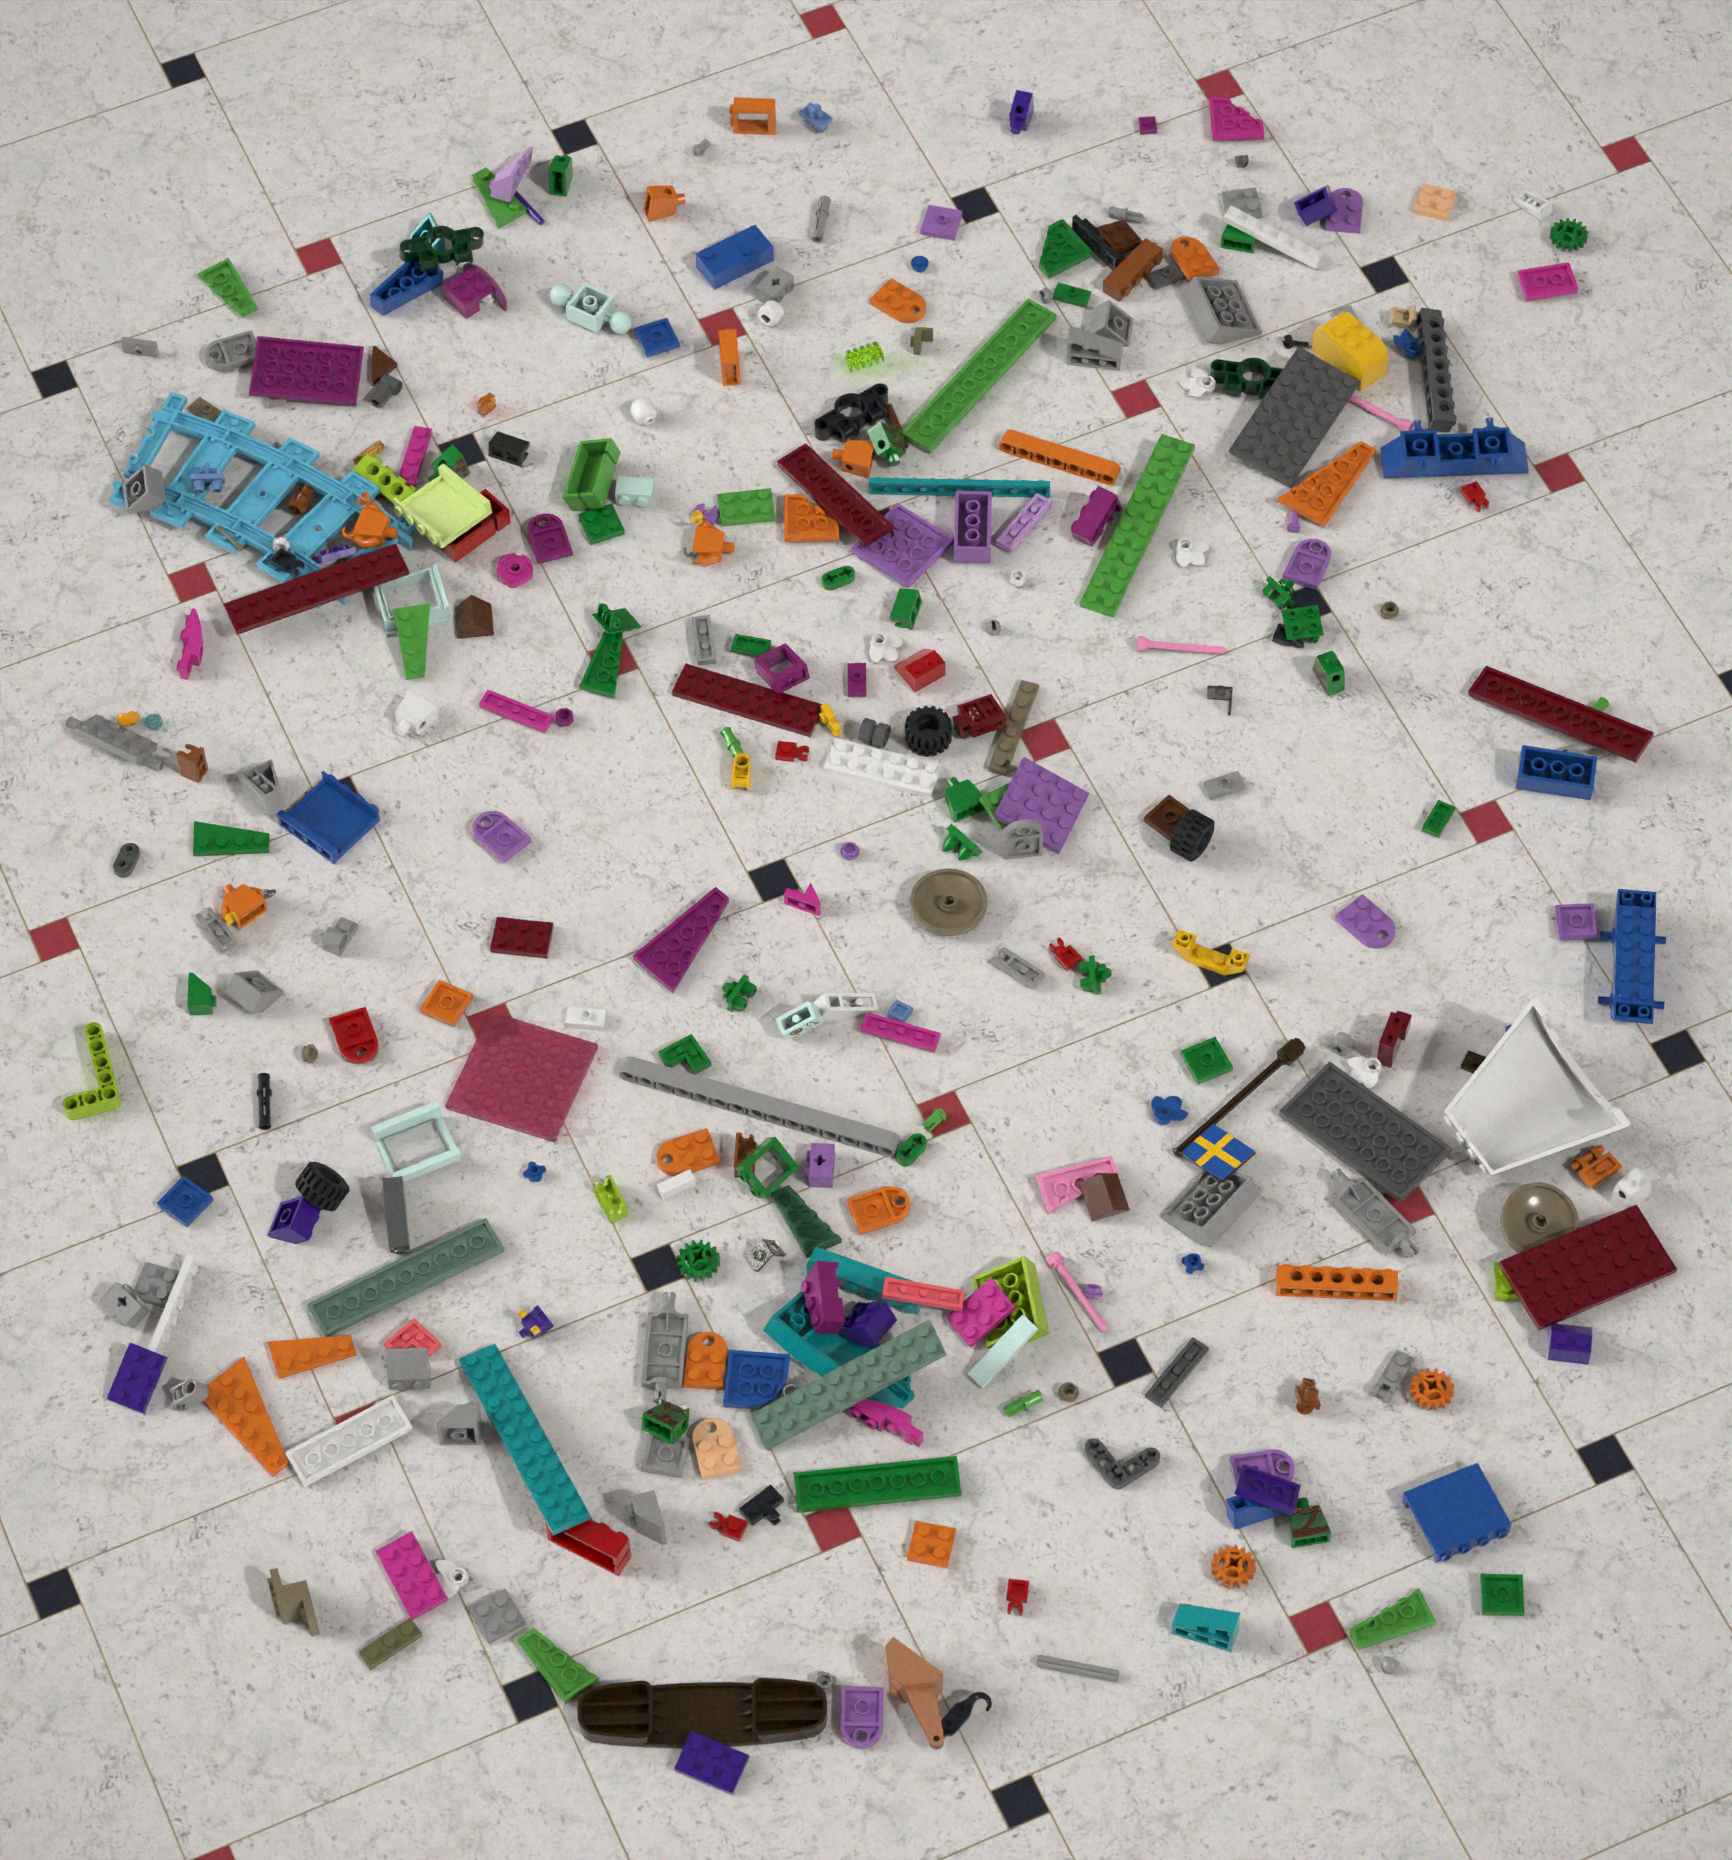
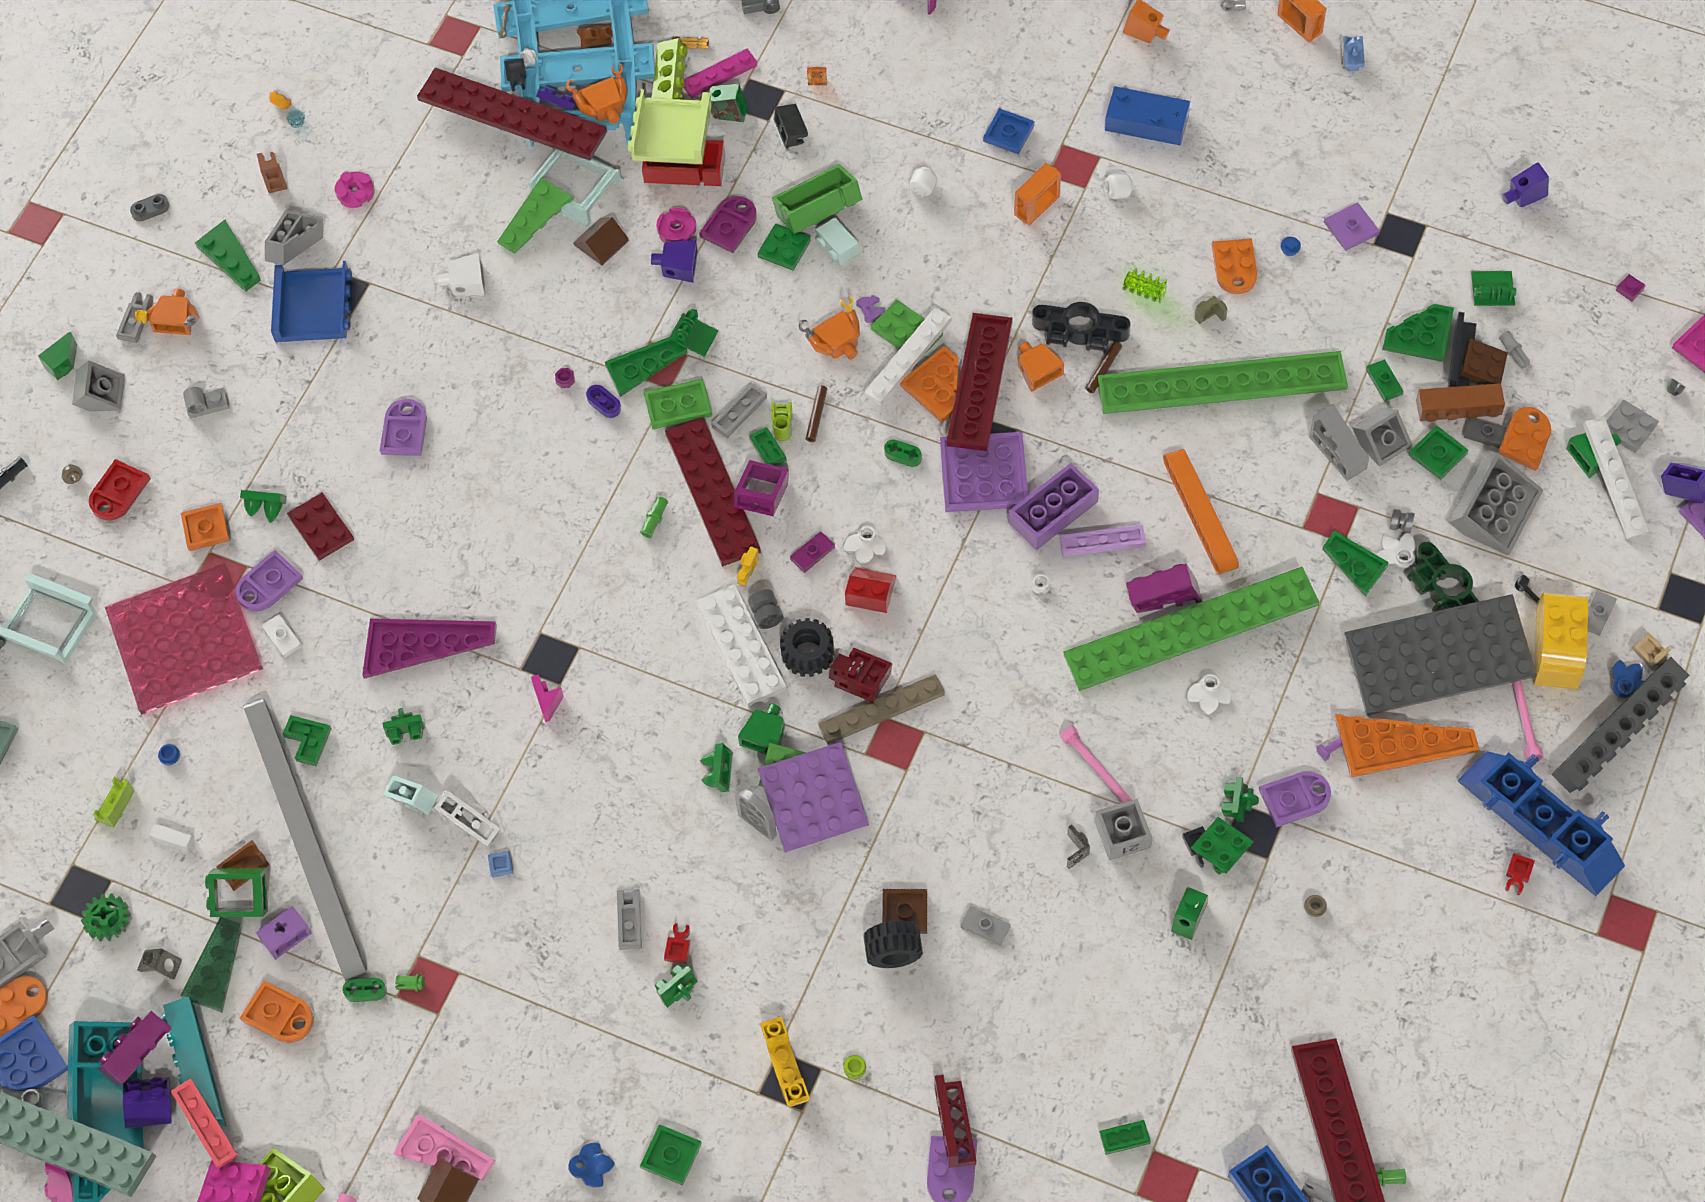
camera: 50 degrees right, 5 degrees up
(117, 740) = (251, 109): light grey plate -> none
(192, 645) = (394, 81): dark pink slope -> none
(257, 720) = (350, 180): none -> dark pink plate
(471, 950) = (271, 501): none -> green tile
(516, 711) = (537, 341): dark pink plate -> none
(534, 994) = (268, 582): none -> medium lavender plate
(534, 1177) = (95, 729): blue plate -> none
(545, 587) = (677, 260): none -> dark purple torso
(590, 308) = (985, 64): light aqua brick -> none
(608, 1144) = (169, 754): none -> blue plate
(609, 708) = (605, 401): none -> dark purple plate
(659, 669) = (677, 404): none -> bright green plate
(688, 1152) = (213, 823): orange plate -> none
(738, 622) = (781, 418): none -> lime piece
(741, 774) = (628, 547): yellow piece -> none
(754, 601) = (816, 413): none -> reddish brown piece
(772, 518) = (907, 356): none -> white plate
(775, 285) = (1149, 166): light grey brick -> none
(789, 751) = (690, 562): red plate -> none
(822, 214) = (1262, 138): light grey pin -> none
(850, 851) = (630, 690): medium lavender plate -> none
(888, 442) = (1072, 374): green torso -> none
(900, 1032) = (477, 882): dark pink plate -> none
(906, 608) = (920, 527): green hinge -> none
(947, 487) = (1092, 468): teal plate -> none
(948, 902) = (642, 808): dark tan dish -> none
(993, 632) = (974, 609): light grey hinge -> none
(1045, 295) = (1360, 361): light grey hinge -> none
(1070, 189) = (1493, 288): none -> green hinge
(1154, 309) = (1438, 452): none -> green plate
(1182, 363) = (1402, 521): none -> flat silver wheel
(1182, 409) = (1355, 561): none -> green wing
(1238, 663) = (1123, 829): none -> light grey brick
(1247, 923) = (854, 1067): none -> lime tile
(1340, 895) = (947, 1122): none -> dark red fence

